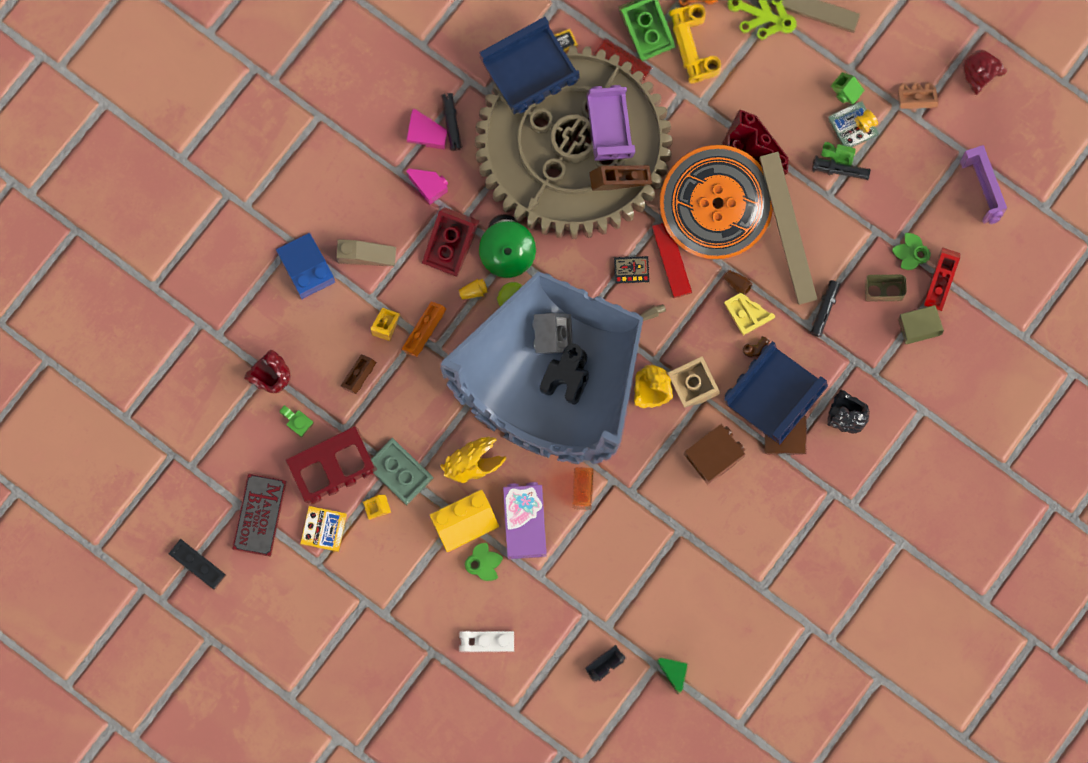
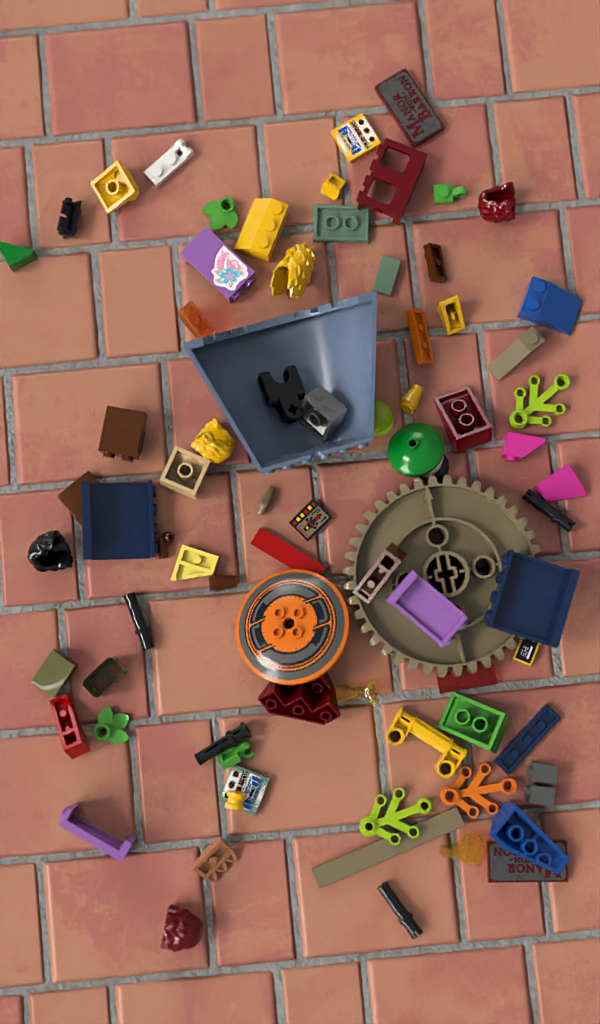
camera: 140 degrees right, 5 degrees up
(197, 564) = (419, 39): black tile -> none
(384, 204) = (536, 404): none -> lime plant
(403, 399) = (386, 276): none -> sand green tile
(548, 656) = (115, 187): none -> yellow slope
(713, 120) = (354, 692): none -> clear yellow animal
(788, 228) = (220, 656): dark tan tile -> none
(847, 88) = (274, 814): bright green brick -> none

